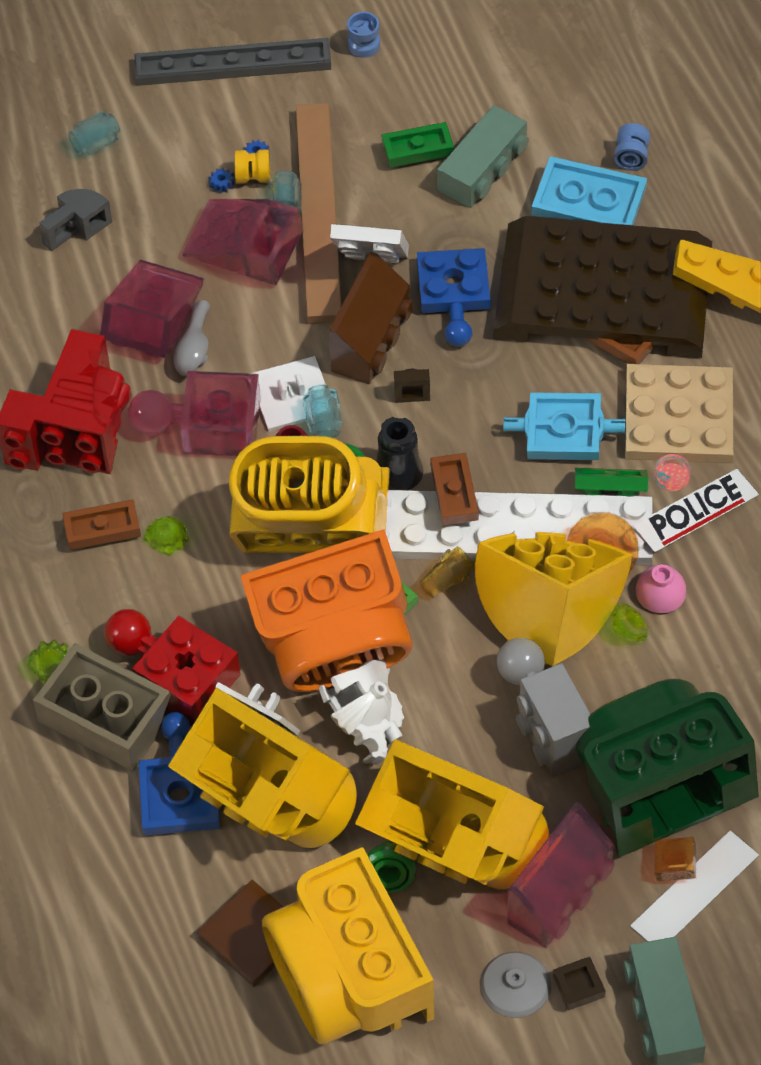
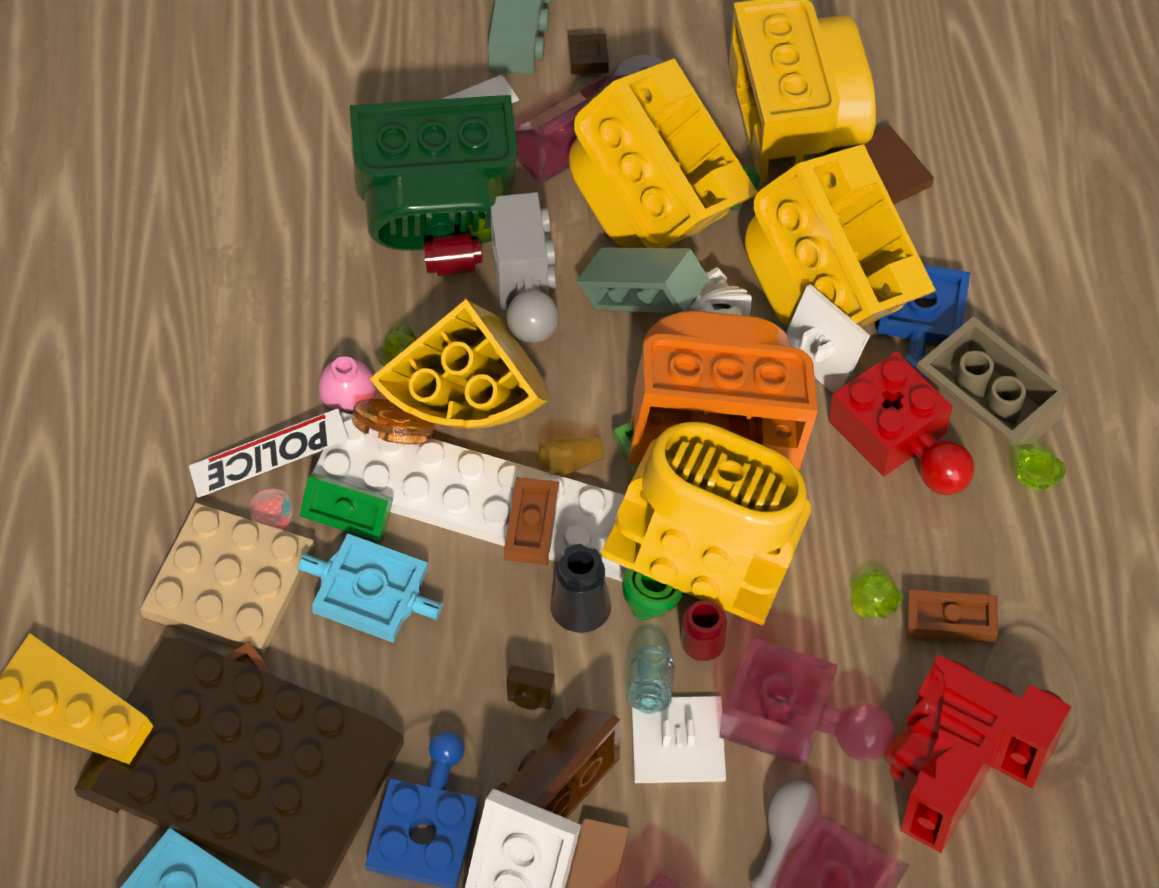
camera: 165 degrees left, 0 degrees up
(434, 712) = (643, 279): none -> sand green brick

